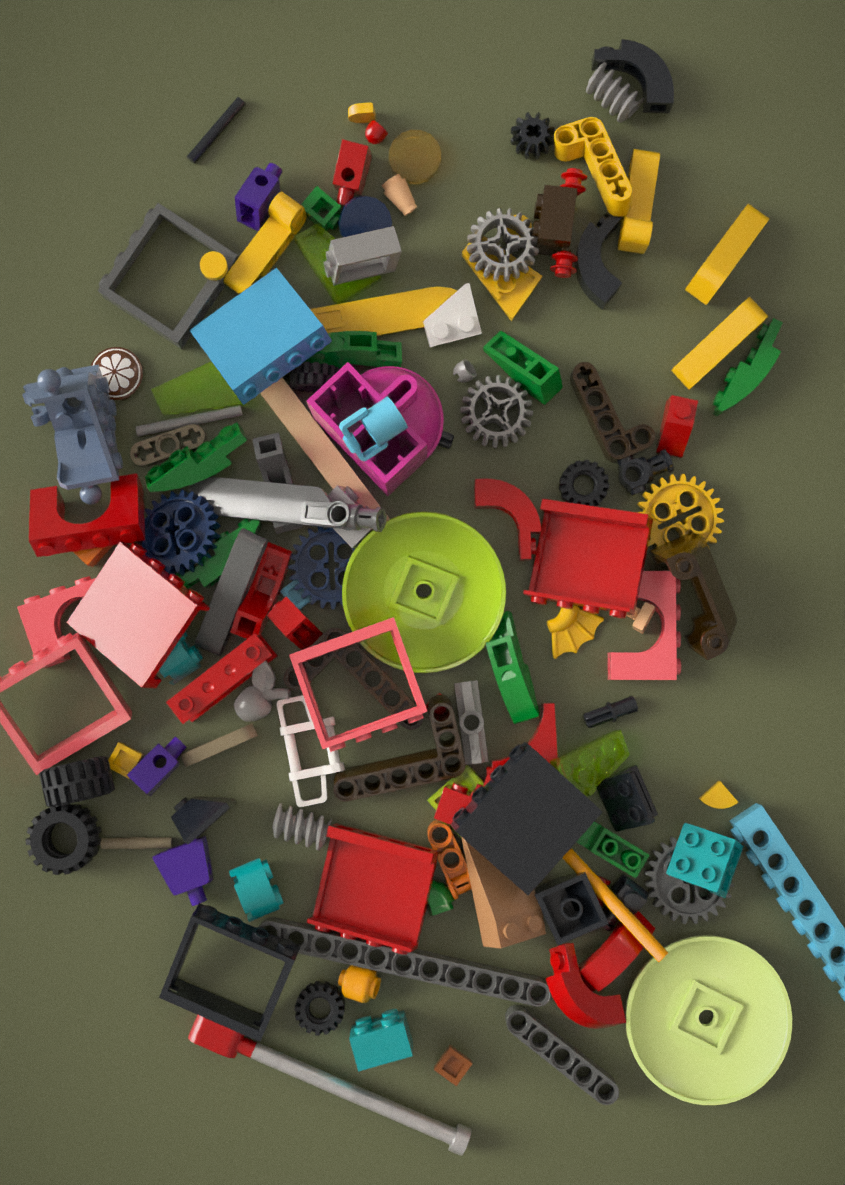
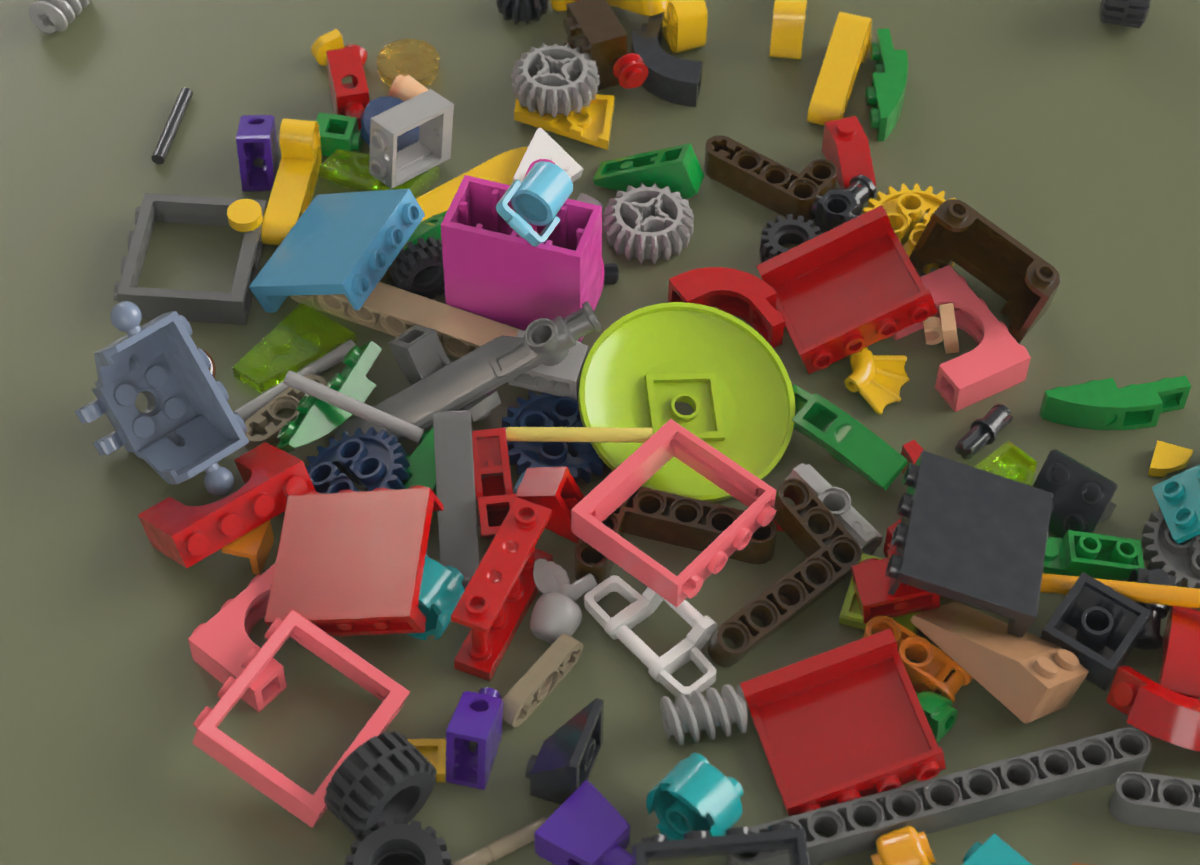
camera: 30 degrees left, 35 degrees down
(201, 483) = (353, 406): none -> light grey bar
(334, 587) = (578, 434): none -> light yellow bar
(704, 734) = (1107, 407): none -> green slope

